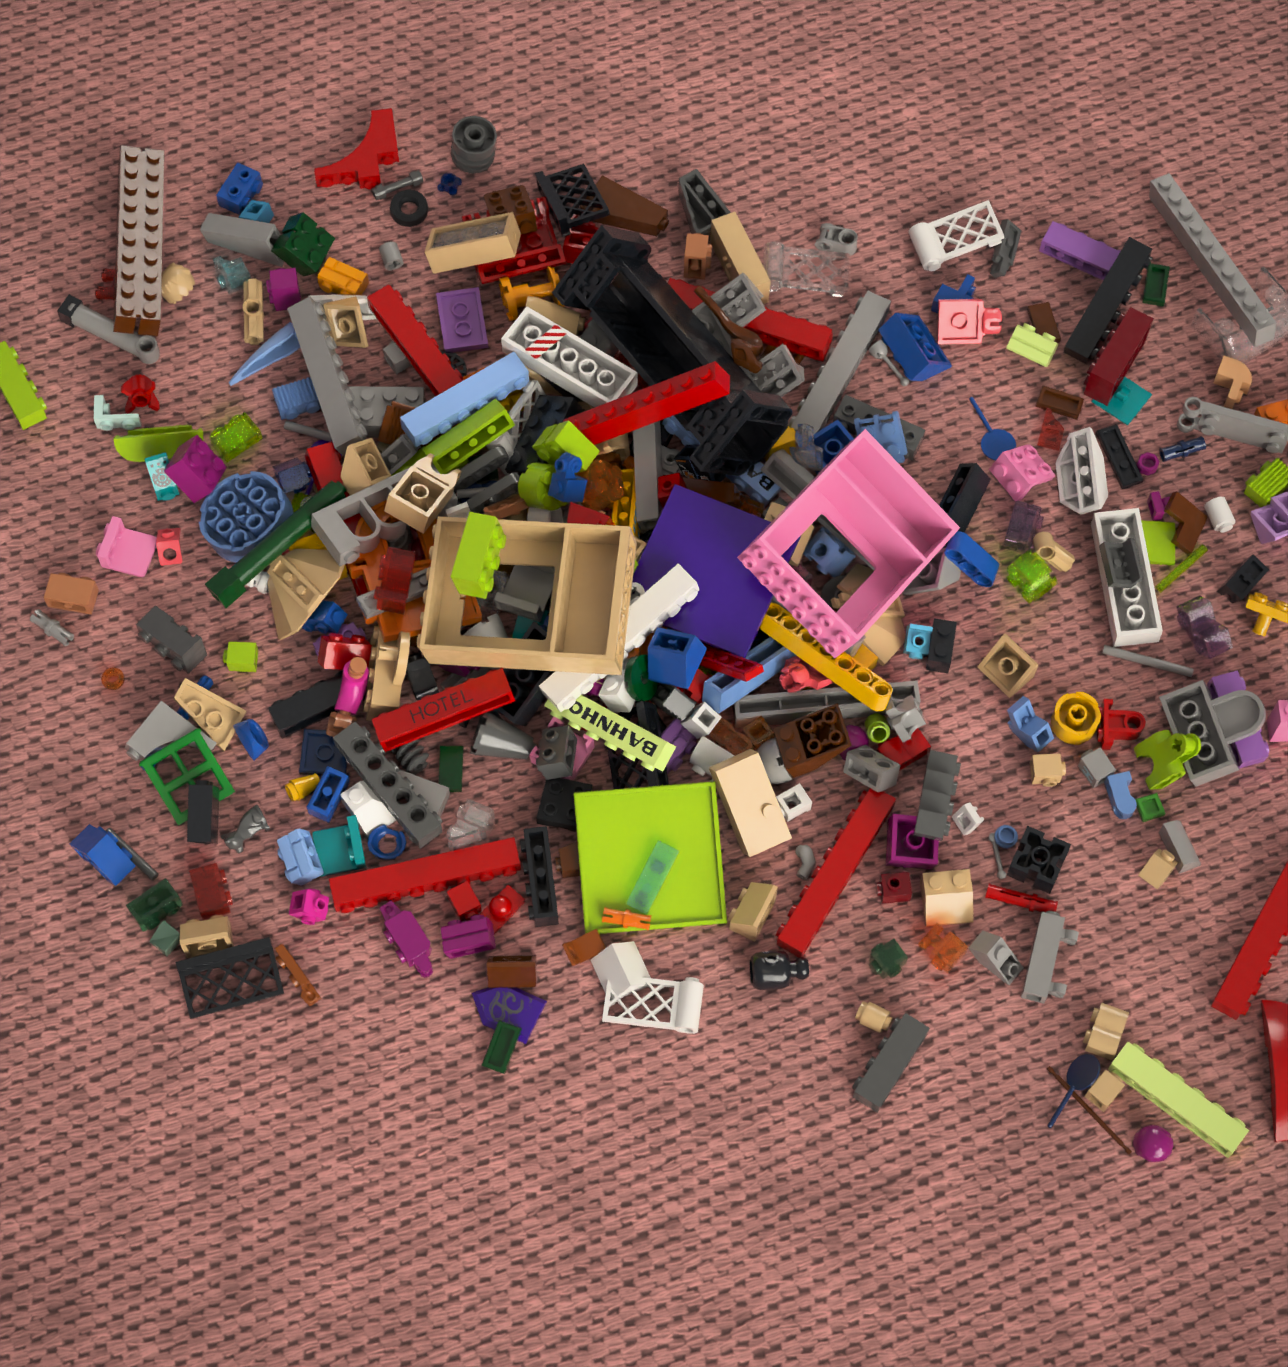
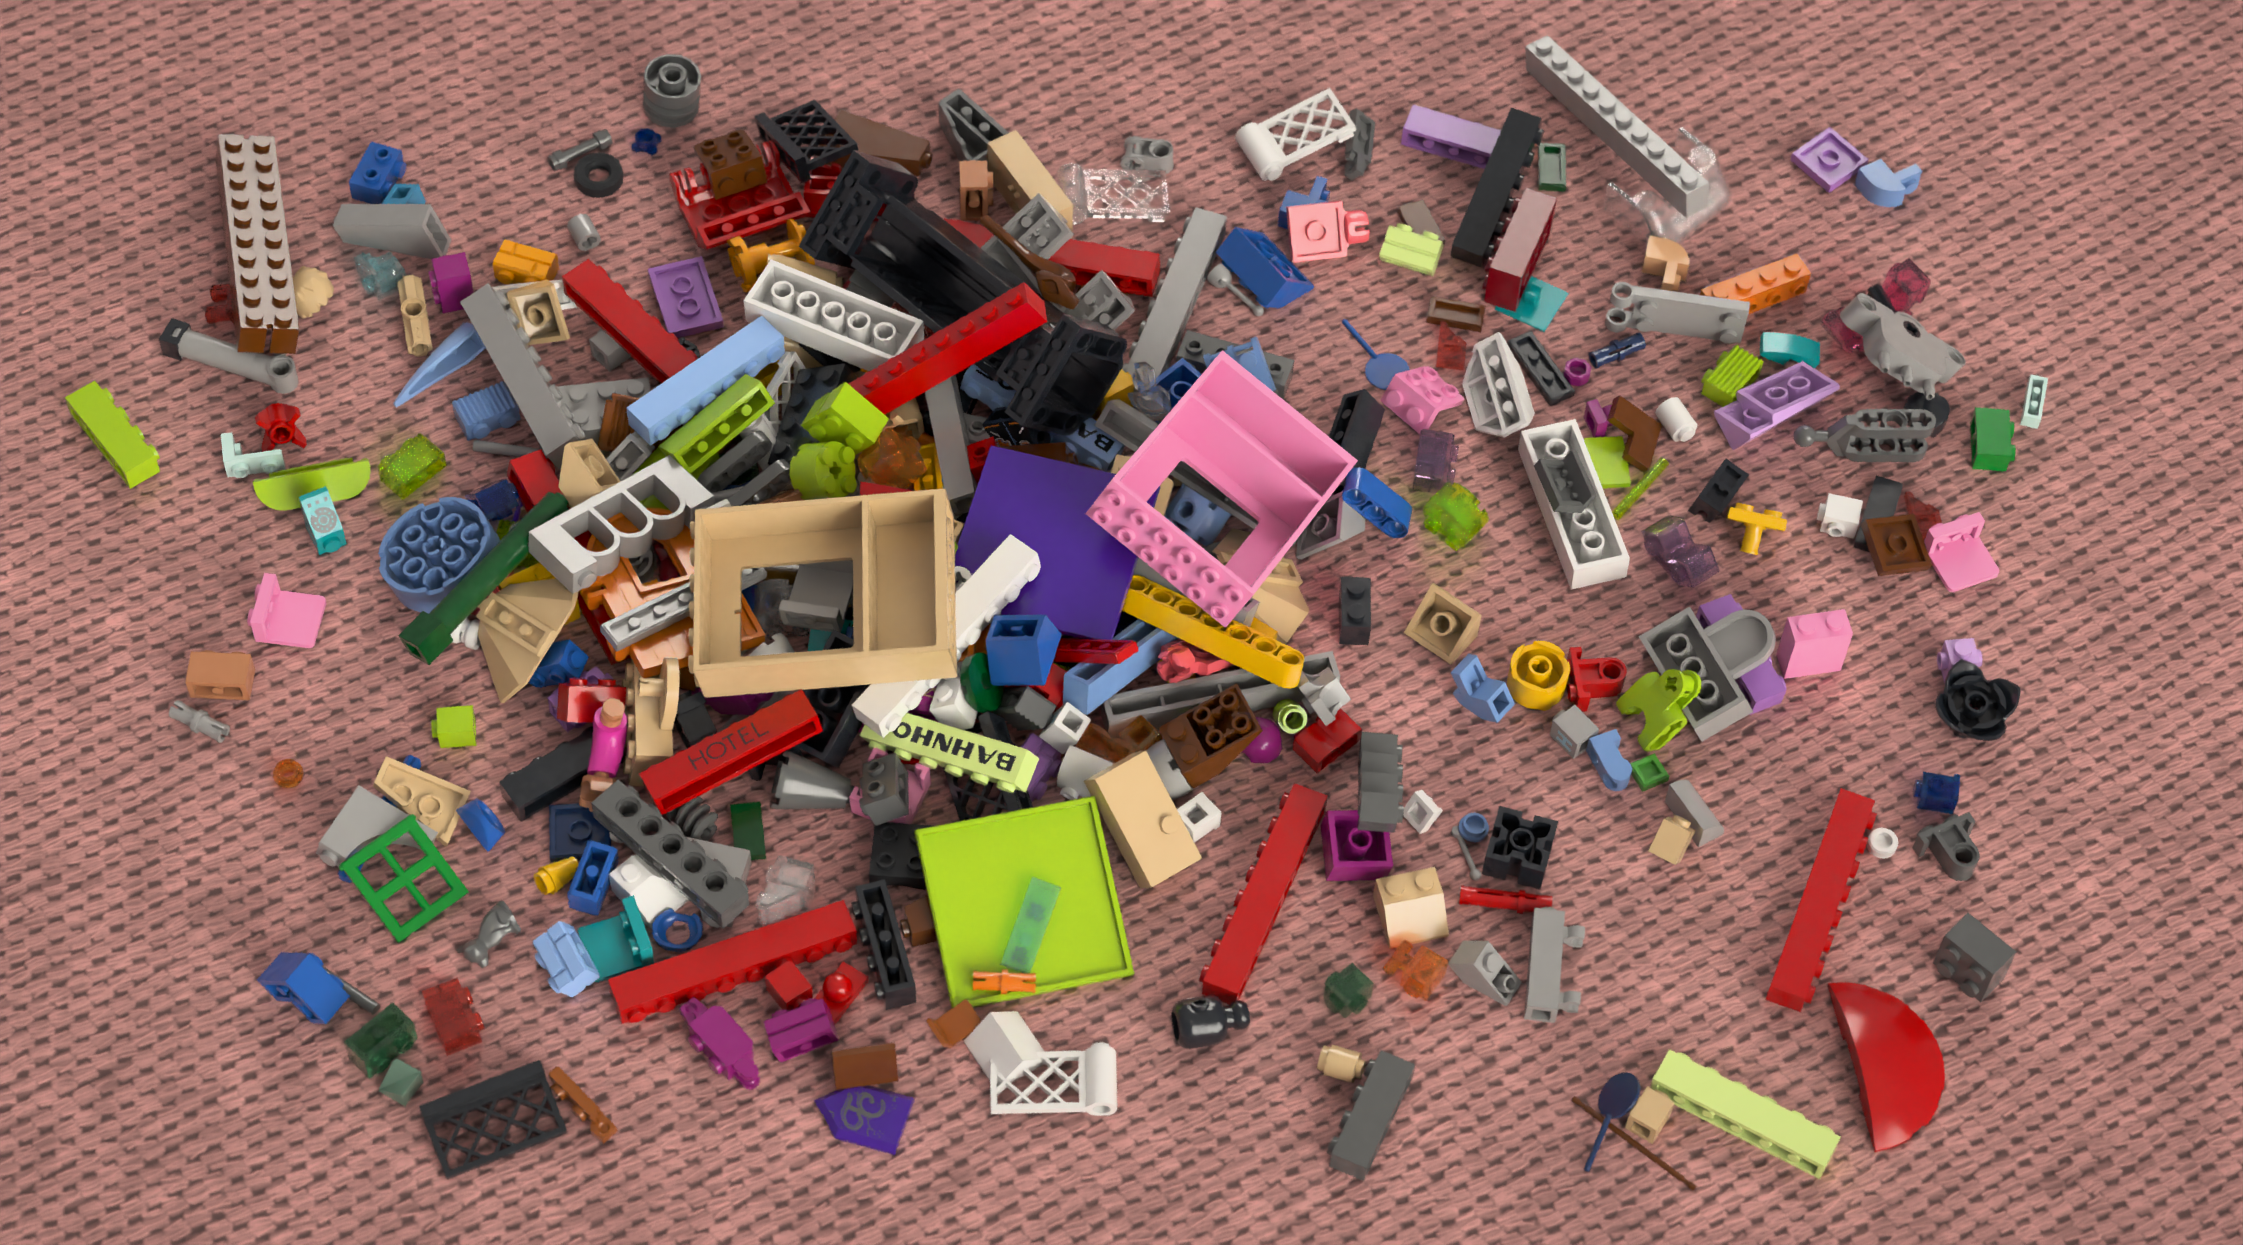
camera: 10 degrees left, 10 degrees down
(167, 539) = (341, 596): coral bracket -> none
(171, 640) = (361, 716): dark grey wedge -> none
(195, 469) = (366, 504): magenta brick -> none
(203, 812) = (431, 917): black brick -> none
(205, 936) = (454, 1069): tan slope -> none
(304, 247) = (470, 230): dark green piece -> none
(309, 906) = (586, 1017): dark pink brick -> none
(362, 164) = (533, 128): red arch -> none
(396, 578) = (648, 595): clear red brick -> none
(421, 494) = (667, 493): tan brick -> none
(473, 242) = (688, 200): tan brick -> none
(478, 555) = (756, 543): lime brick -> none
(501, 1047) = (864, 1160): dark green tile -> none
(545, 341) = (801, 297): sticker -> none
(565, 483) = (849, 458): blue brick -> none
(753, 909) = (1166, 951): tan slope -> none
(808, 861) = (1226, 885): light grey arm -> none
(871, 768) = (1290, 763): light grey brick -> none
(894, 887) = (1342, 904): dark red brick -> none
(917, 631) = (1323, 596): medium azure brick -> none
(1047, 769) = (1511, 741): tan brick -> none
(1052, 552) = (1480, 485): tan piece -> none
(1106, 1031) = (1640, 1043): tan brick -> none
(1149, 661) = (1616, 601): light grey bar -> none
(1153, 1143) = (1722, 1171): magenta hair -> none

